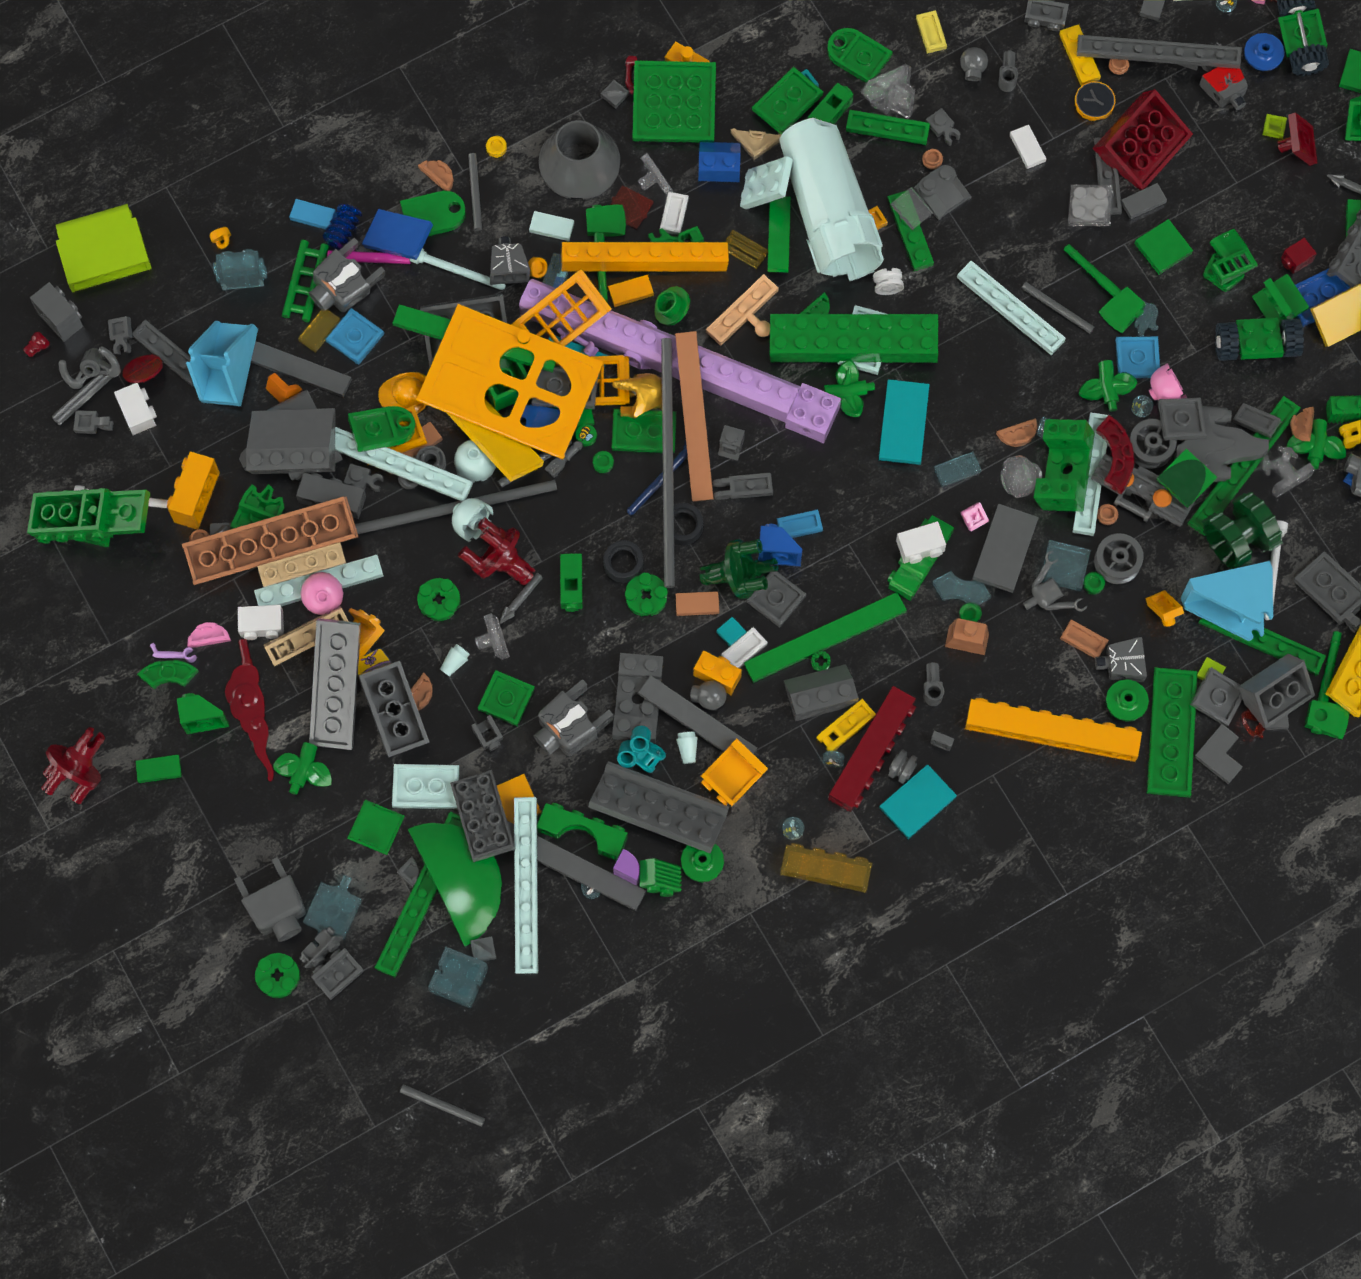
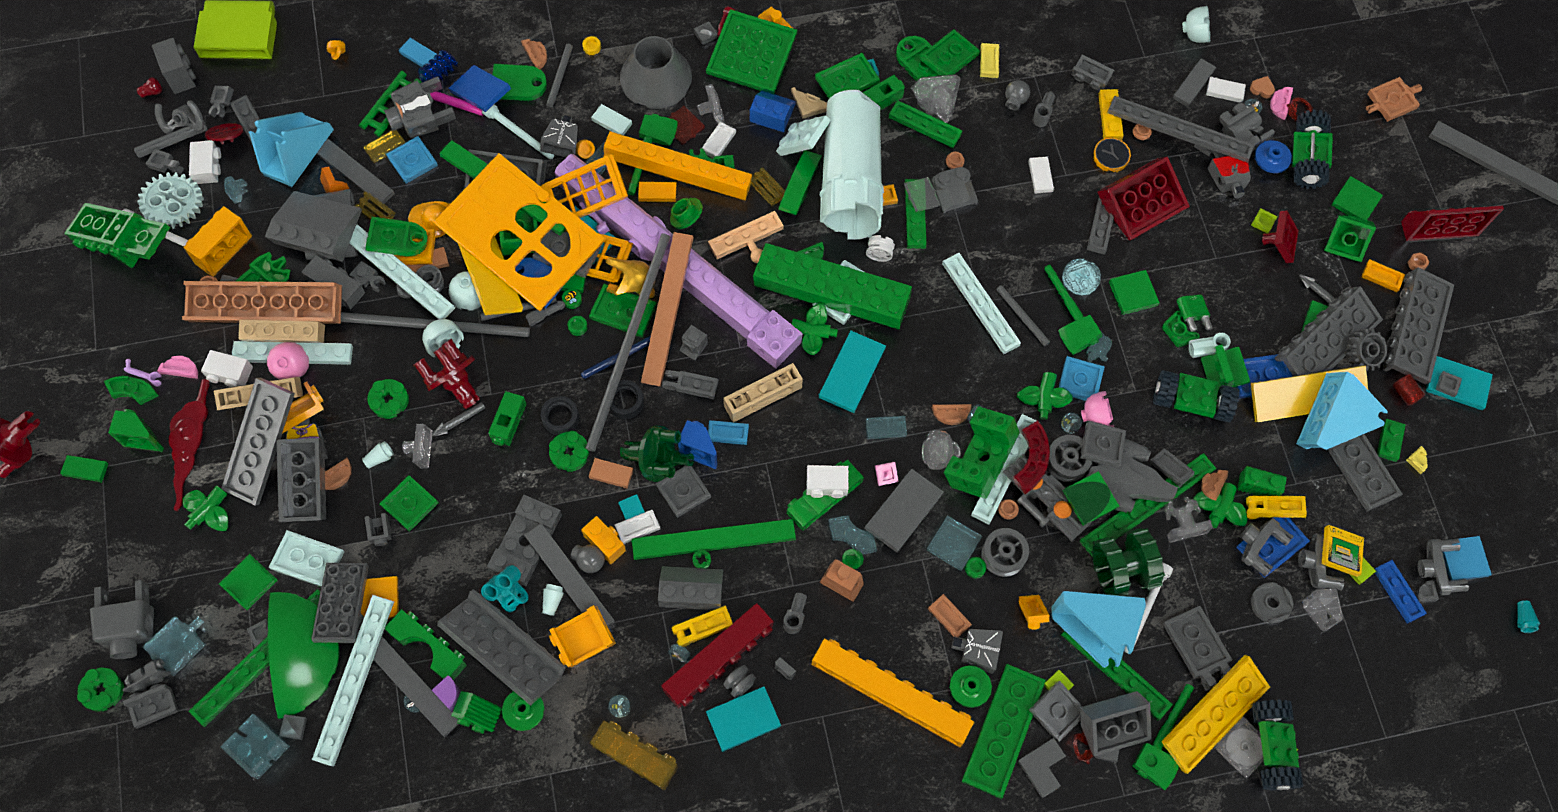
camera: 15 degrees right, 5 degrees down
(120, 444) = (170, 199): none -> light aqua gear
(181, 427) = (235, 188): none -> clear light blue tile
(239, 269) = (336, 77): clear light blue brick -> none
(324, 398) = (364, 201): none -> clear yellow tile
(566, 723) = (448, 542): dark grey piece -> none
(822, 472) = (763, 392): none -> tan brick
(887, 39) = (949, 54): none -> green tile
(942, 124) = (972, 135): dark grey plate -> none
(1048, 591) = (931, 562): dark grey piece -> none
(1090, 205) = (1080, 238): light grey piece -> none
(1104, 246) = (1081, 276): none -> clear light blue tile
(1143, 201) = (1128, 249): dark grey tile -> none
(1219, 28) = (1243, 124): none -> dark grey hips
(1224, 278) = (1186, 332): green slope -> none
(1254, 282) = (1206, 346): none -> light aqua piece
(1298, 256) = (1253, 335): dark red brick -> none

